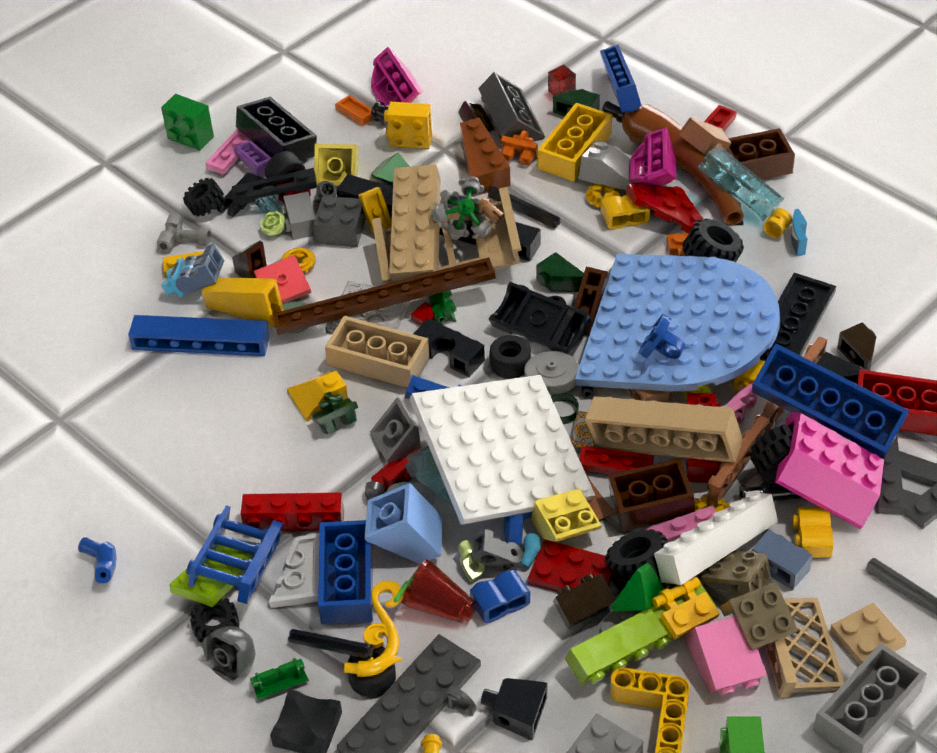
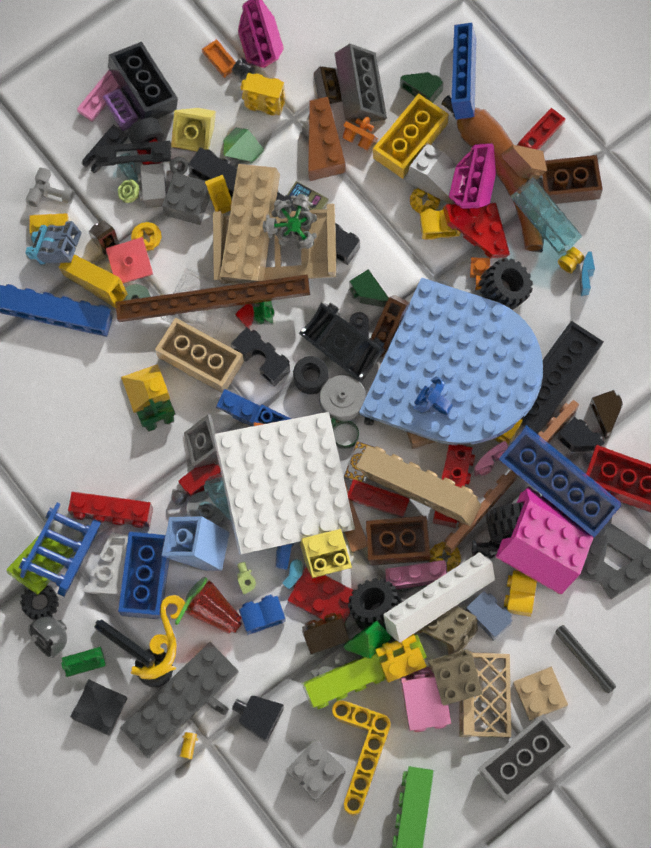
camera: 10 degrees right, 25 degrees up
(187, 122) = (63, 59): green brick -> none
(203, 197) = (65, 146): black tyre -> none
(487, 208) = (314, 225): medium nougat pin -> none
(494, 551) = (269, 579): dark grey leg -> none
(527, 208) = (352, 203): black axle -> none
(561, 80) = (413, 55): clear red brick -> none

